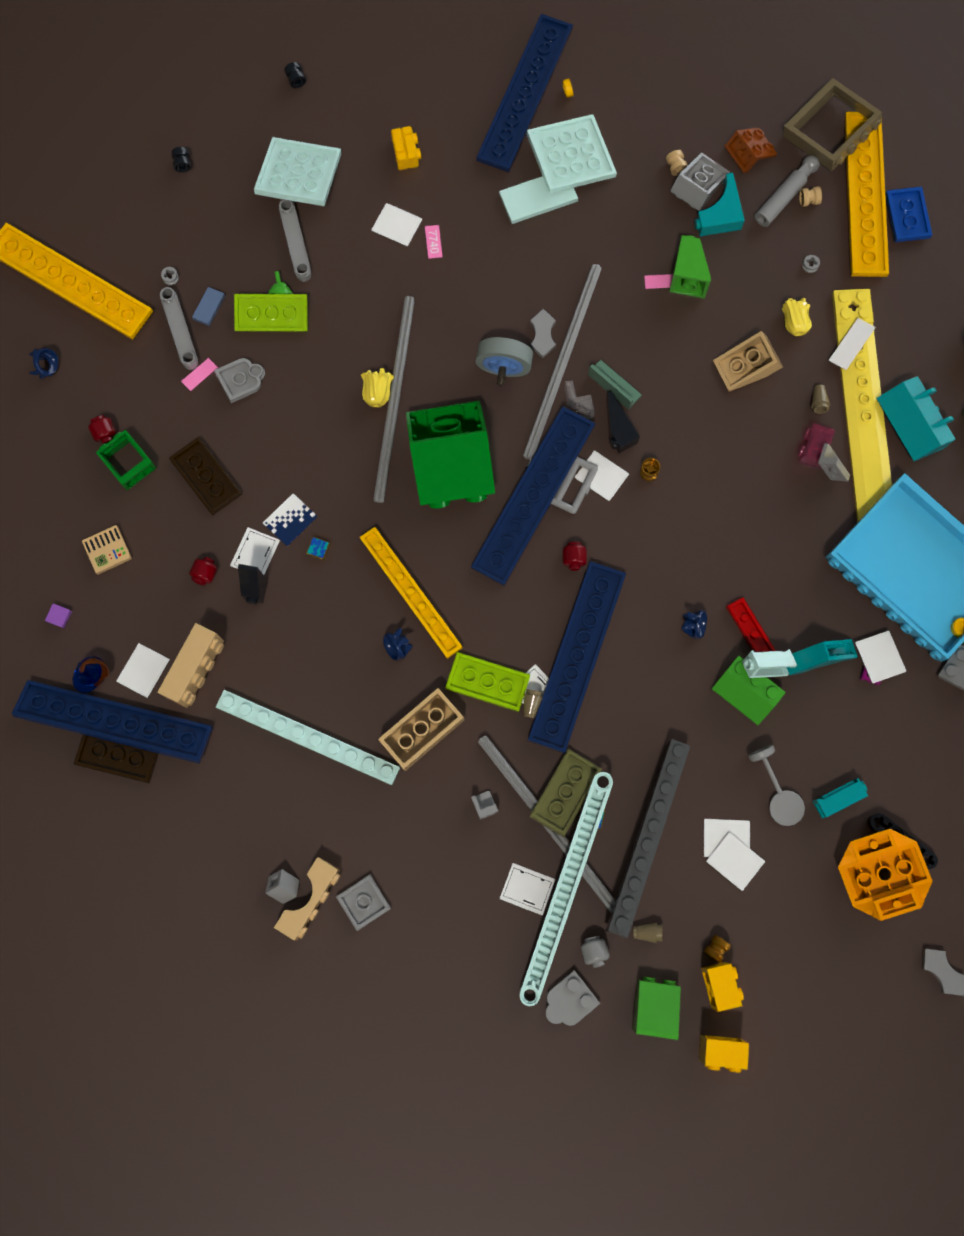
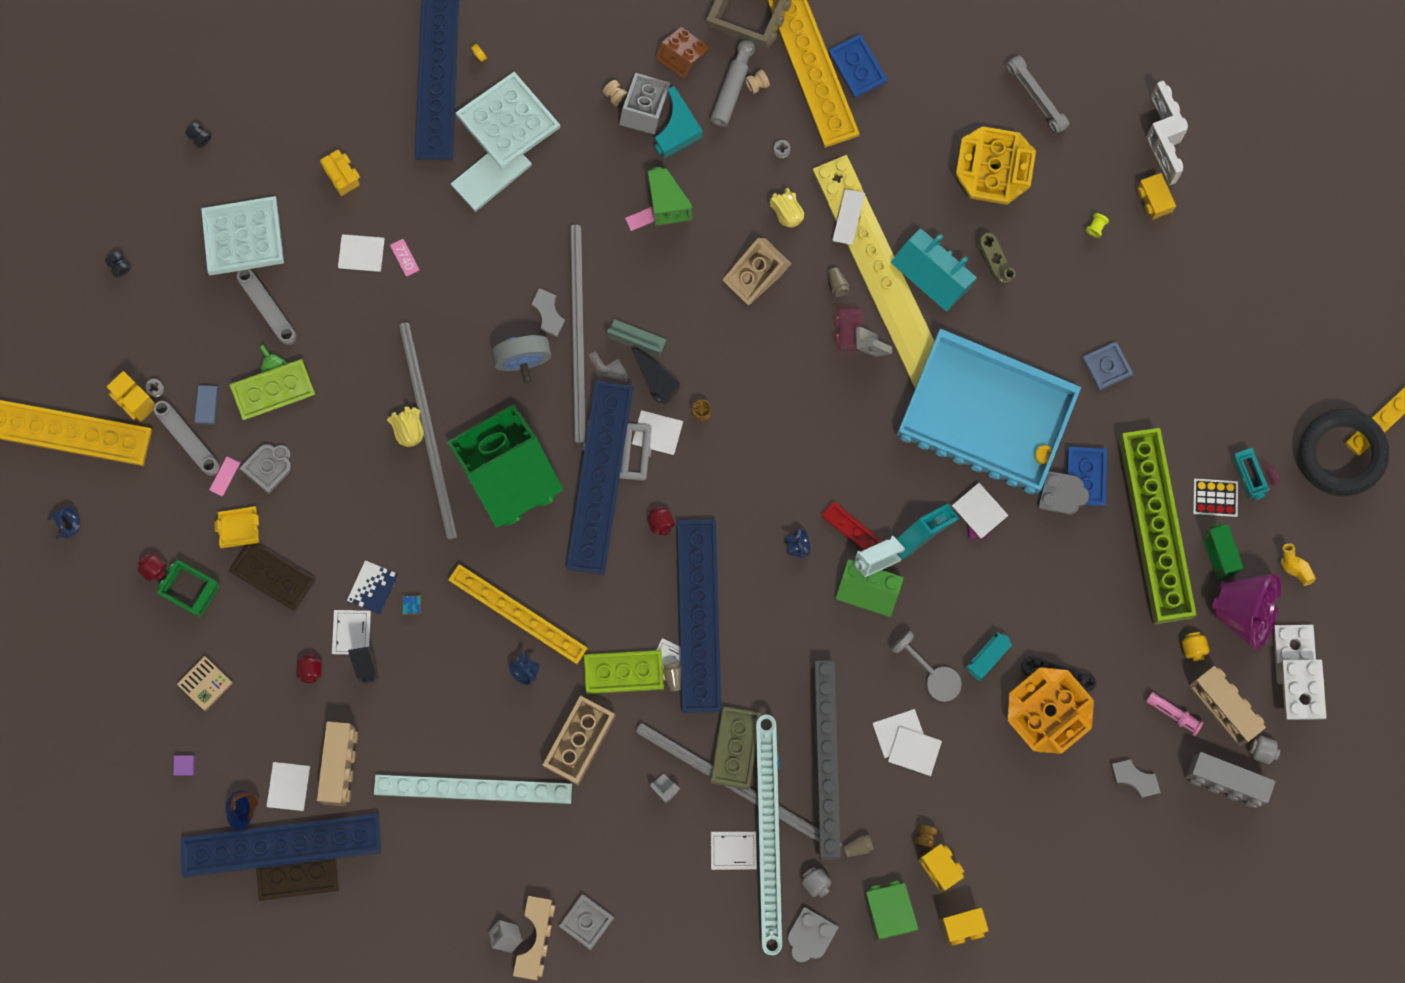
camera: 25 degrees left, 0 degrees up
(143, 273) = (130, 397): none -> yellow piece
(191, 421) = (237, 527): none -> yellow piece

